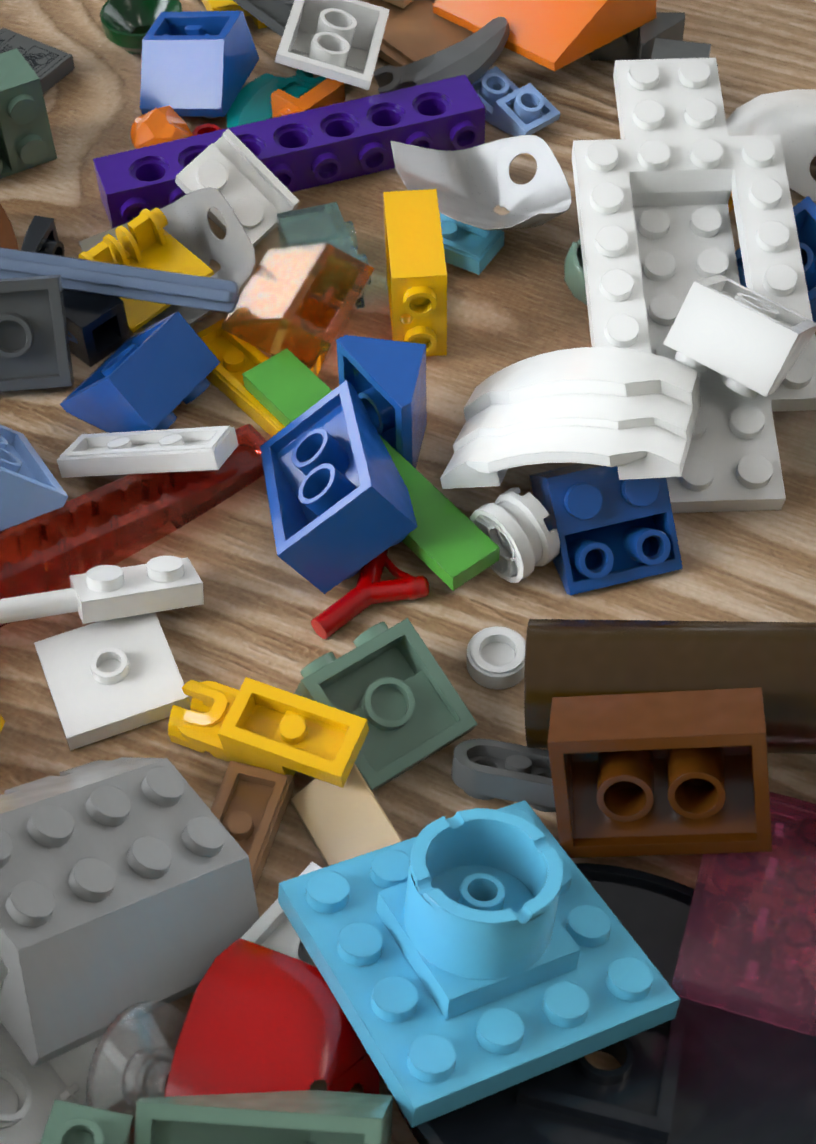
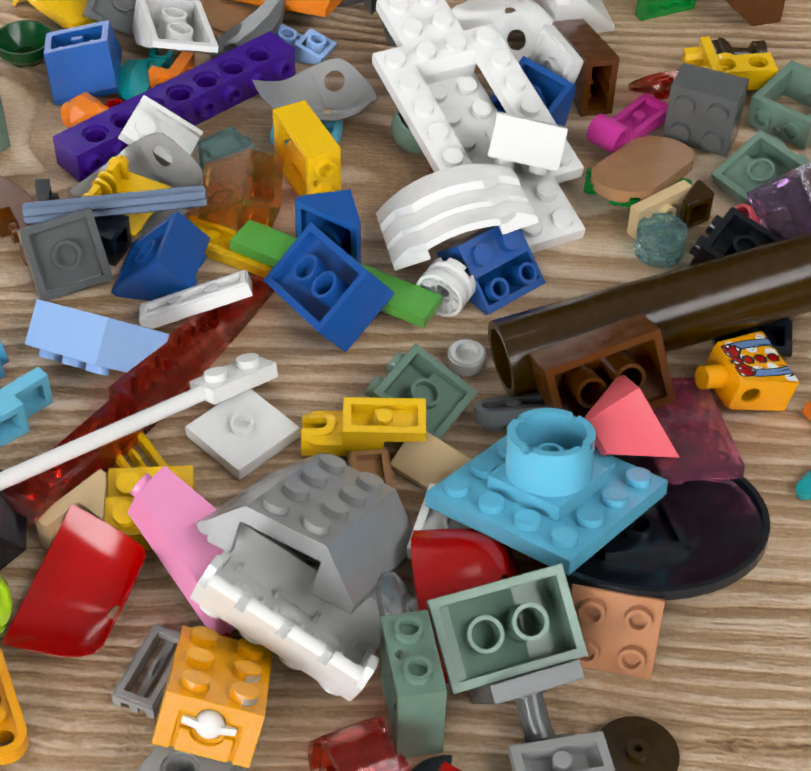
camera: 25 degrees left, 5 degrees down
(369, 592) = (374, 343): red piece -> none
(650, 876) = (627, 423): none -> coral slope

